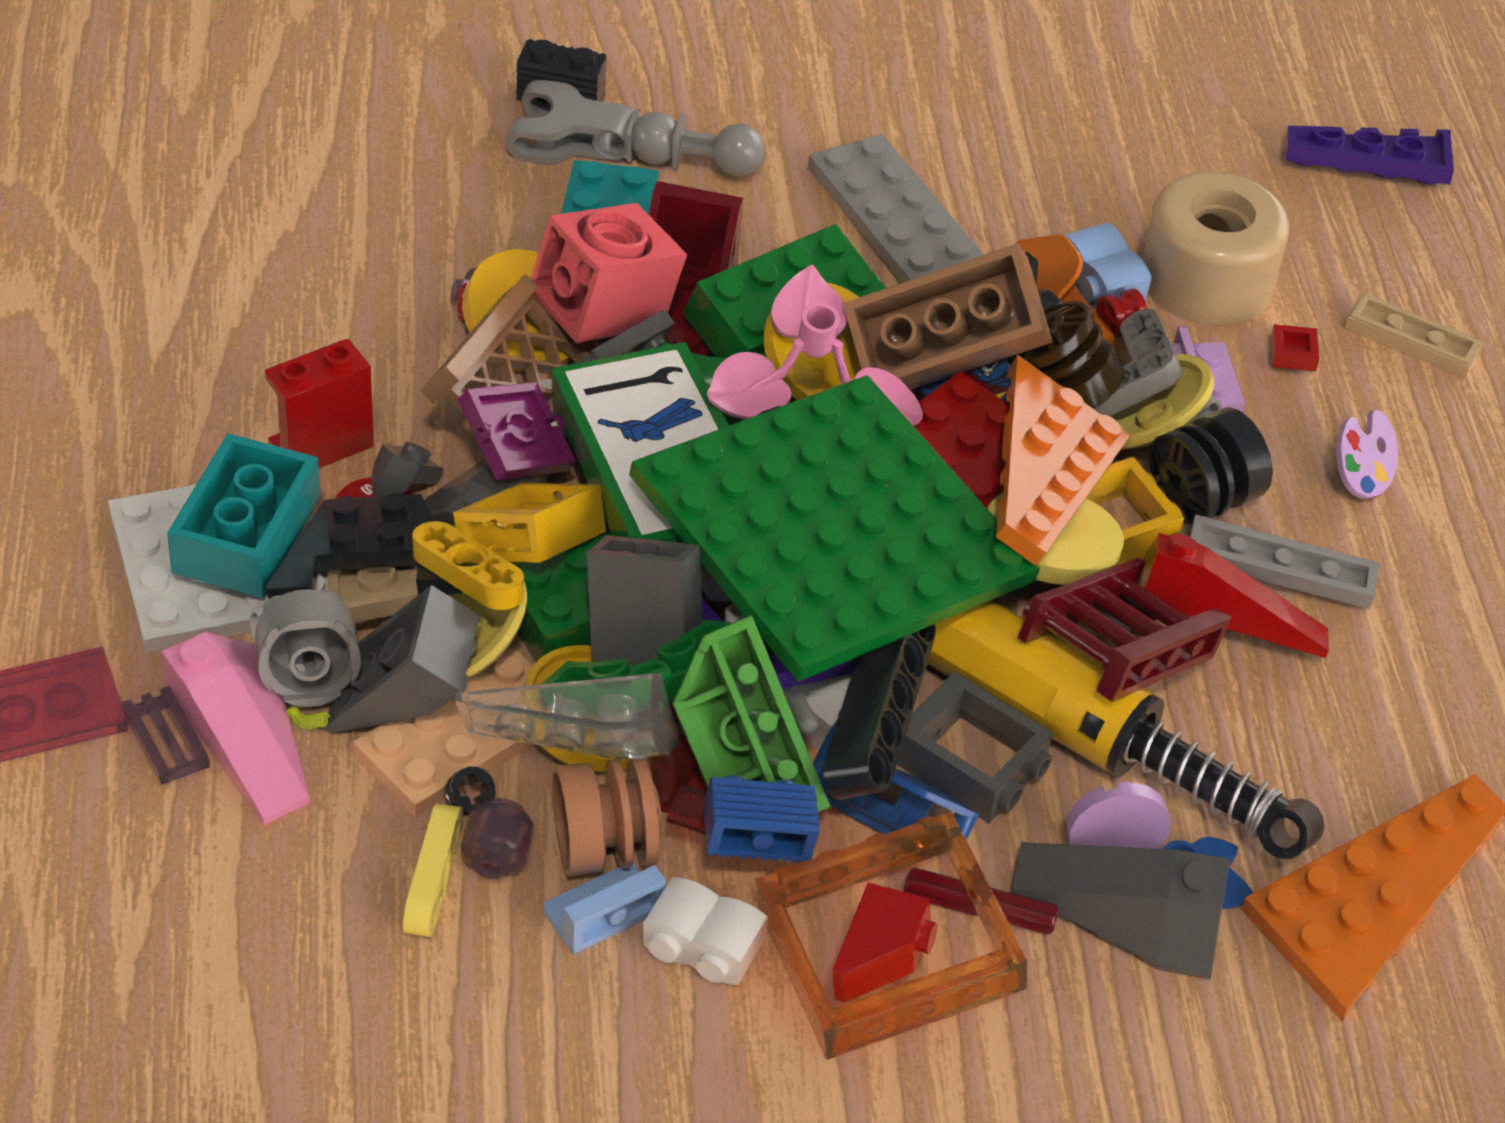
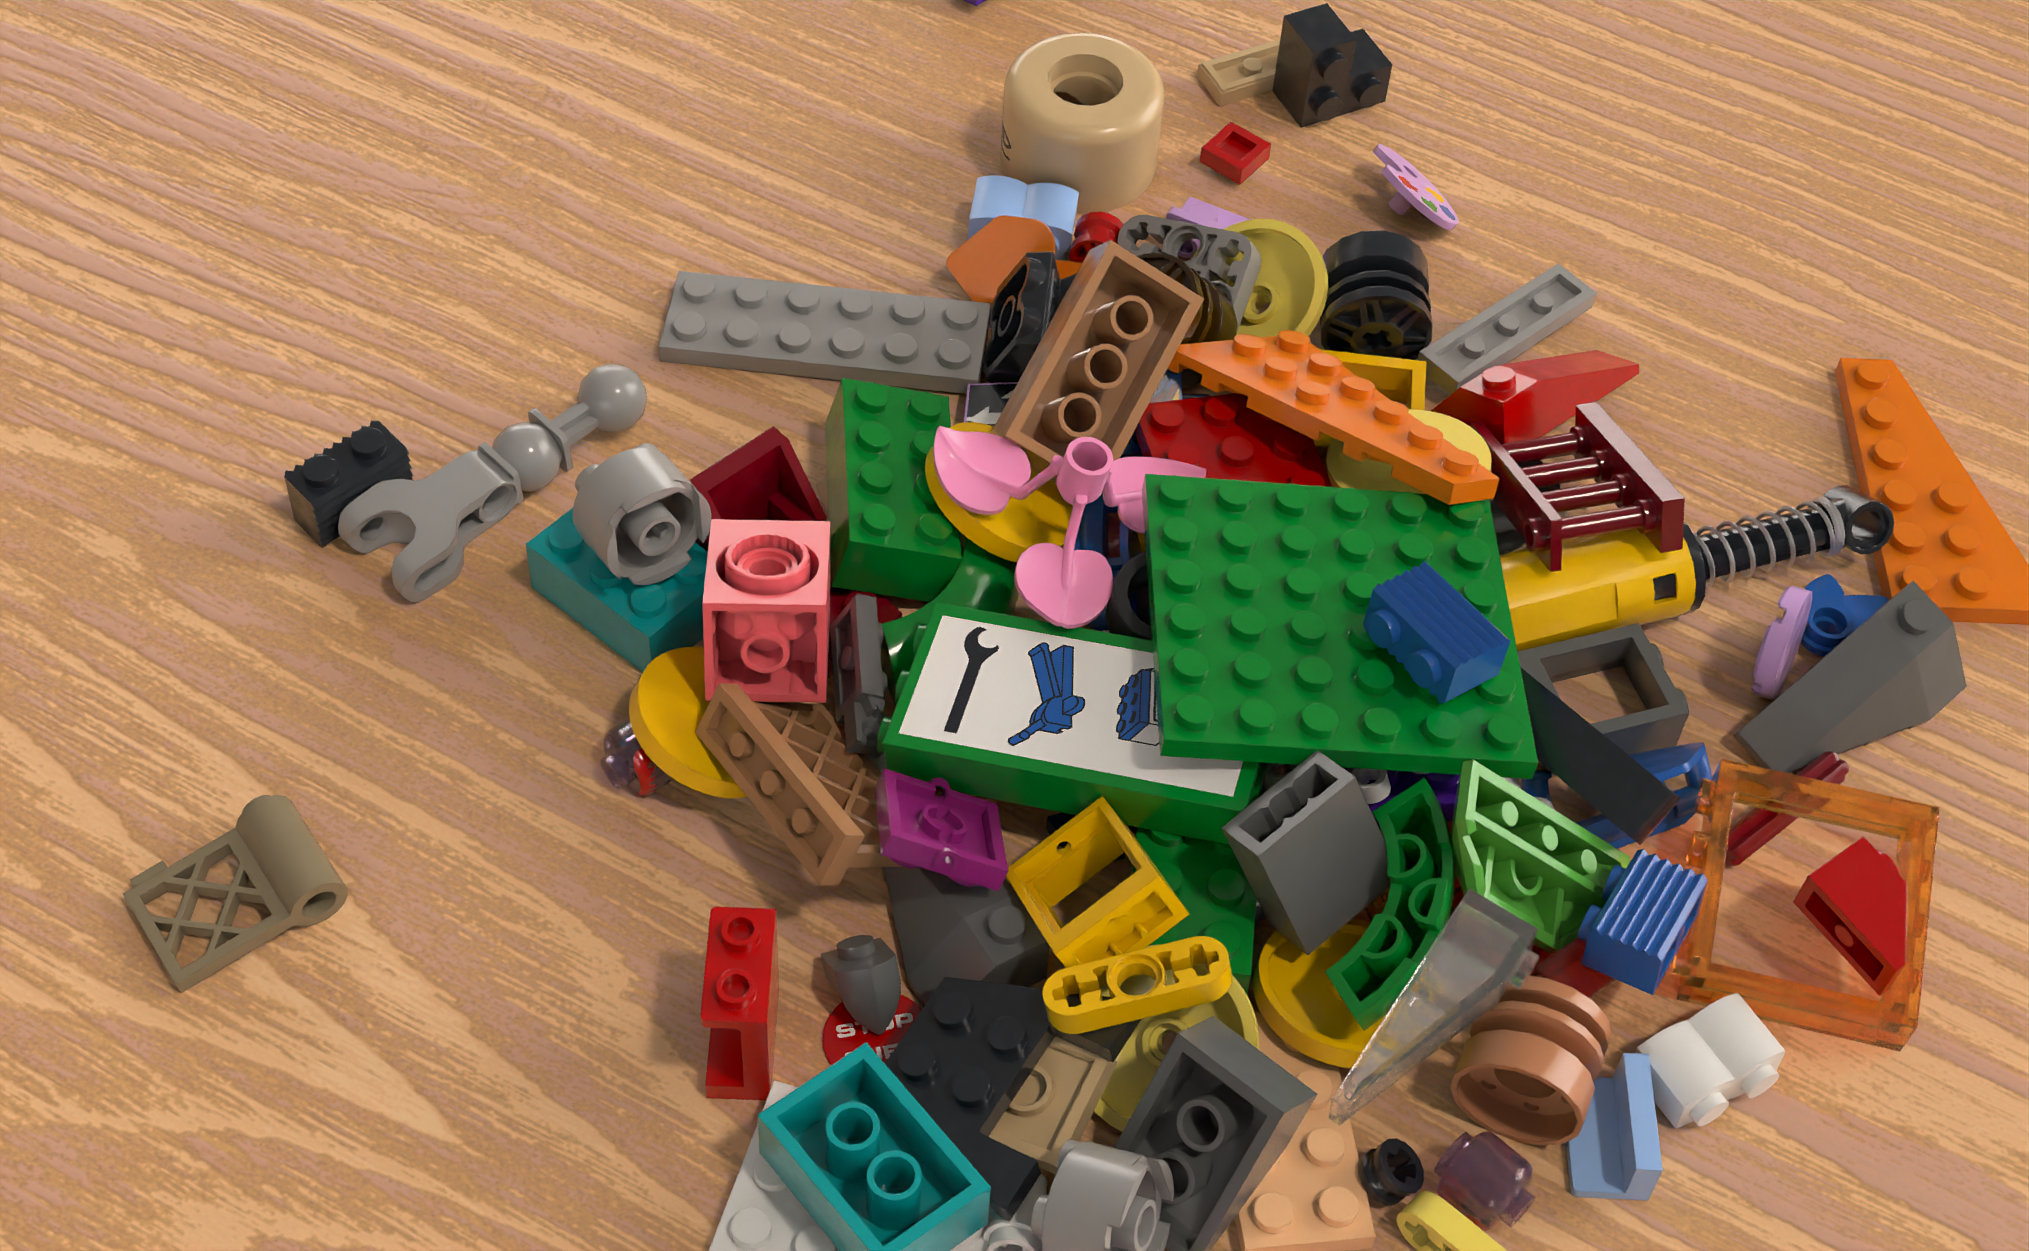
camera: 55 degrees left, 5 degrees up
(261, 194) = (279, 859): none -> dark tan piece
(615, 169) = (640, 514): none -> light grey brick
(845, 553) = (1434, 632): none -> blue brick
(1422, 357) = (1327, 68): none -> black brick

